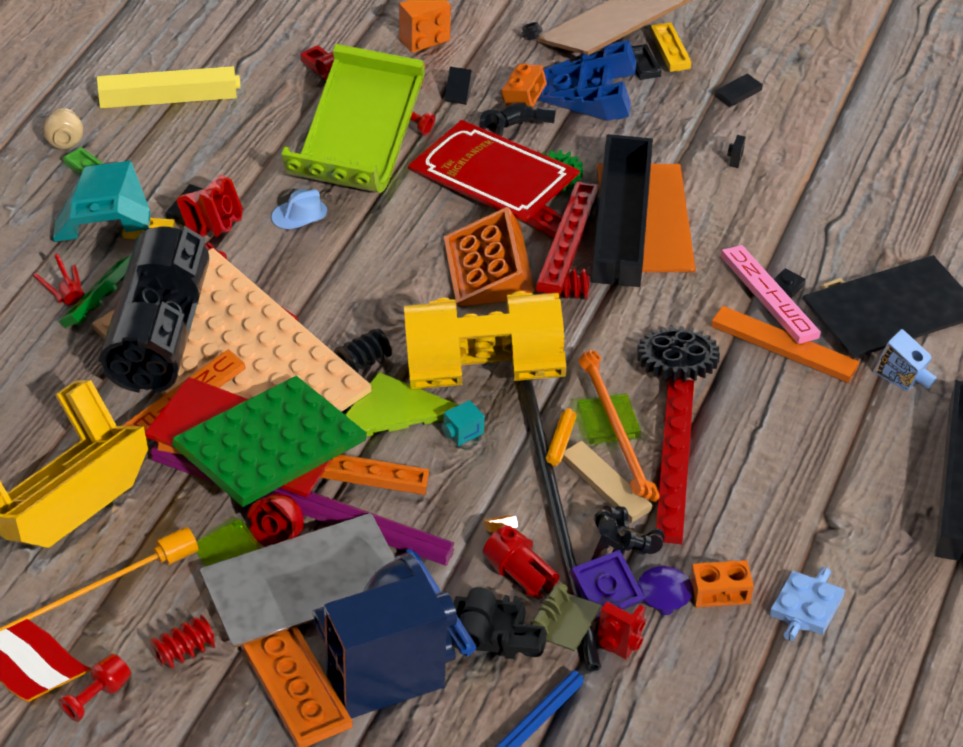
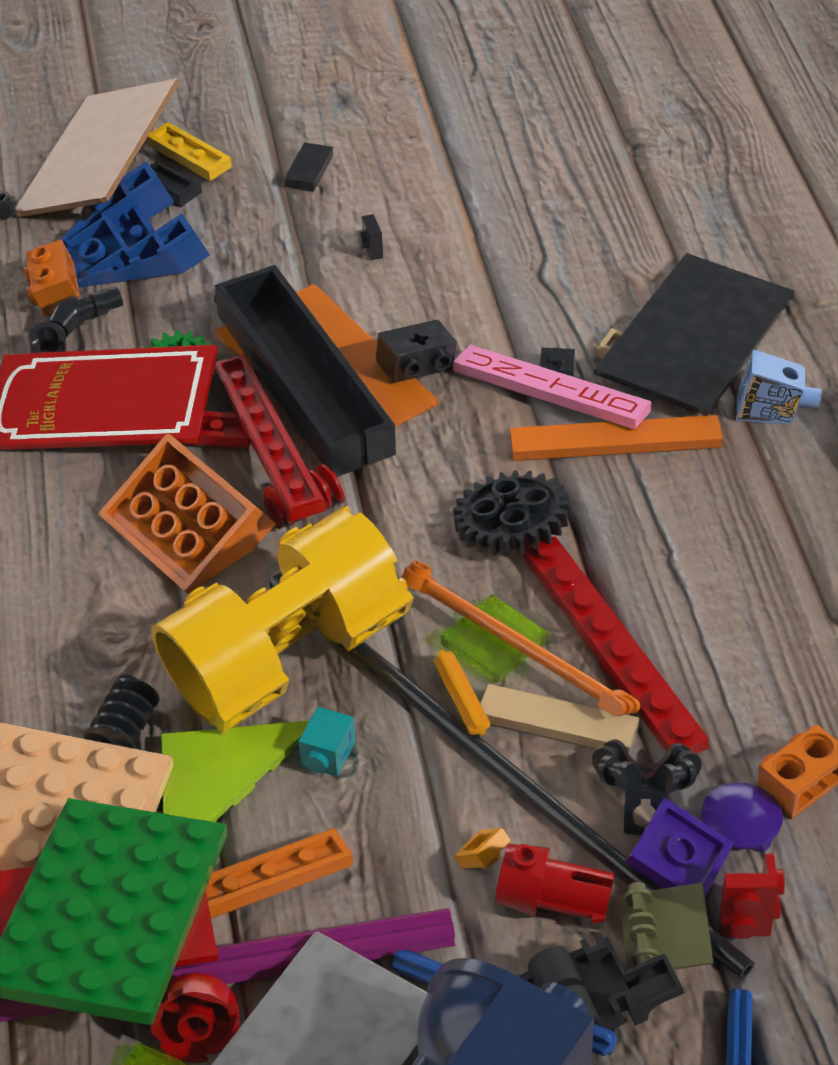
camera: 30 degrees left, 0 degrees up
(702, 231) = (415, 350): none -> black brick

